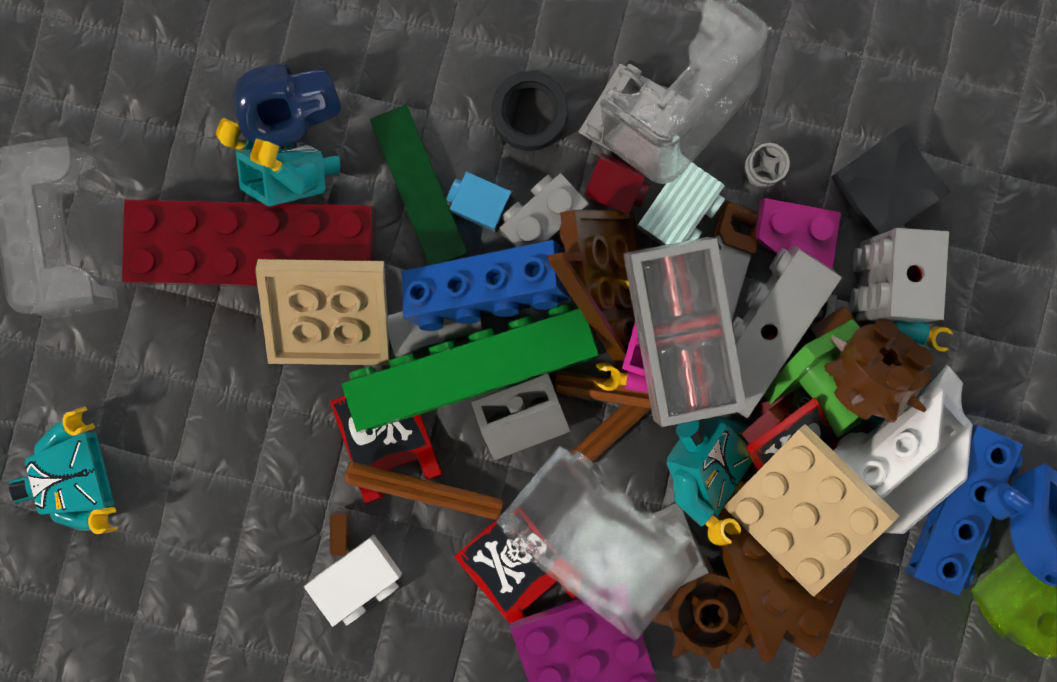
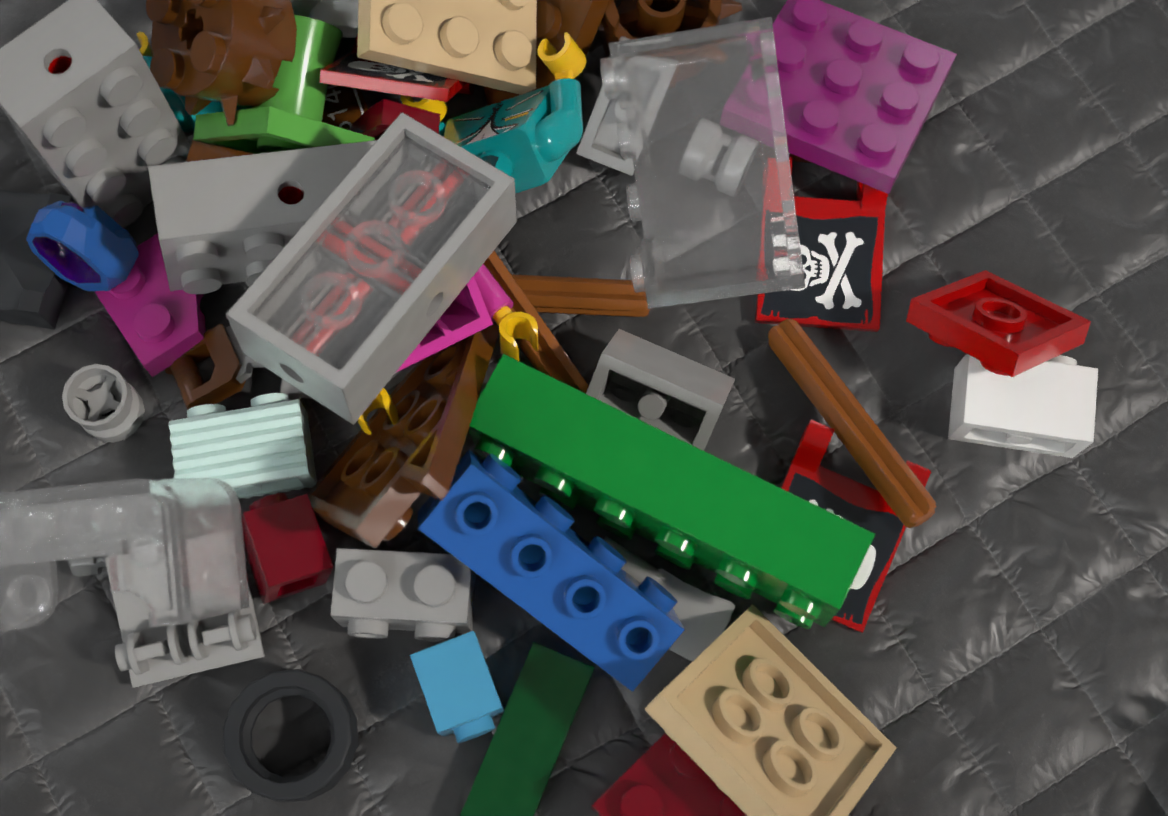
camera: 140 degrees left, 15 degrees down
(340, 533) = (990, 468): reddish brown tile -> none
(397, 603) = (997, 323): none -> red plate
(848, 222) = (82, 245): none -> blue rock

